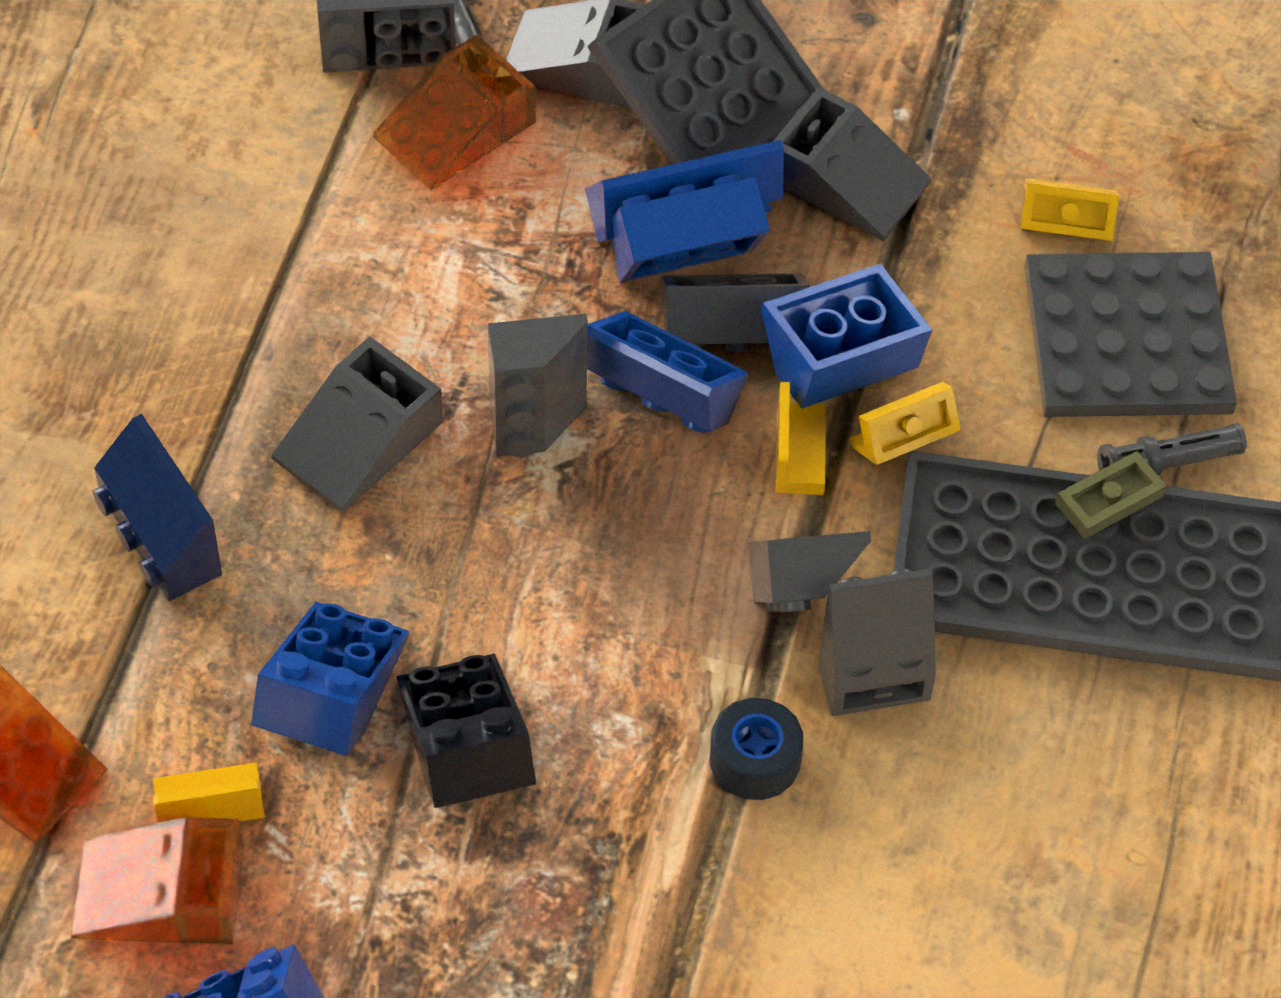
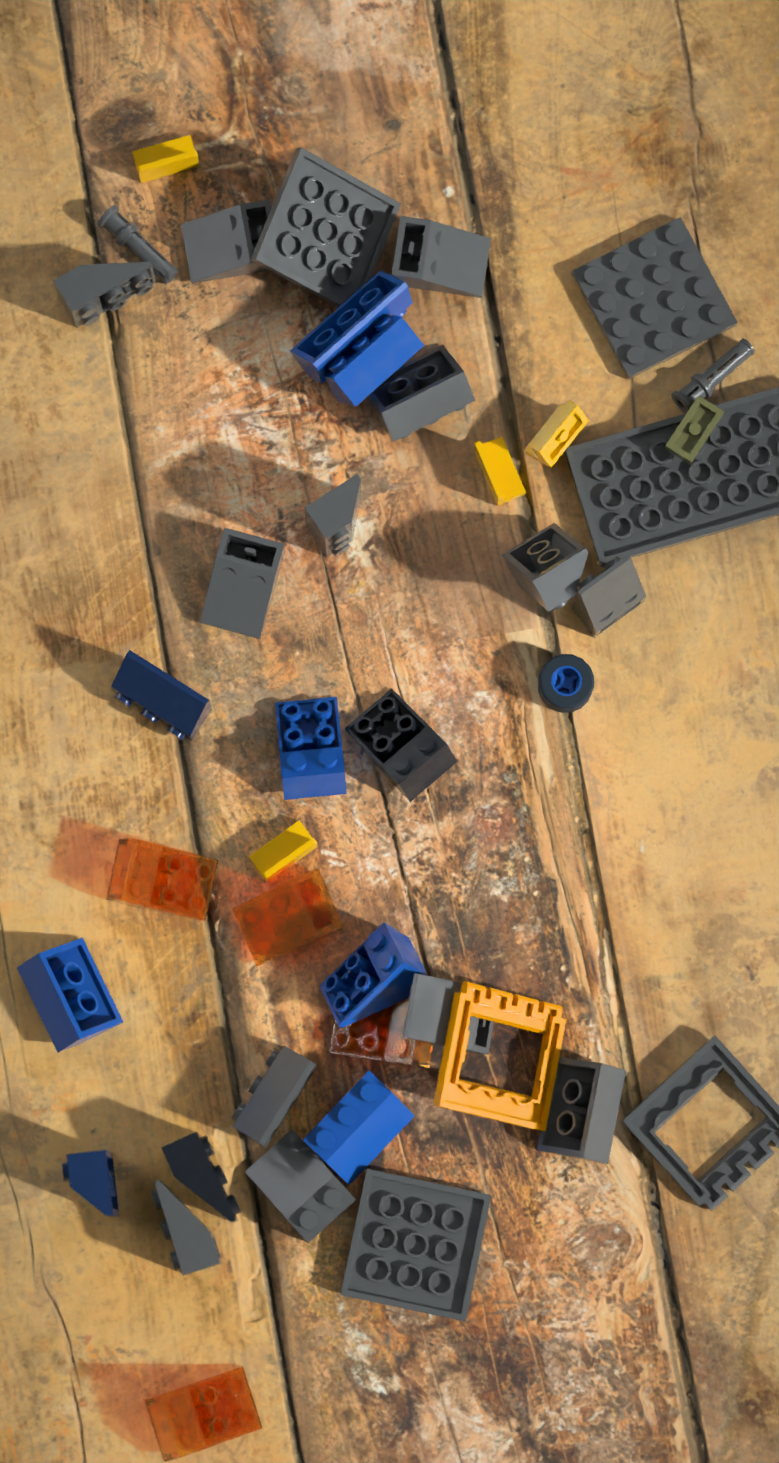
camera: 25 degrees left, 25 degrees up
(458, 113) = (183, 331): clear orange slope -> none
(664, 371) = (402, 461): blue slope -> none
(844, 335) = (495, 390): blue slope -> none
(1069, 209) = (583, 221): yellow panel -> none

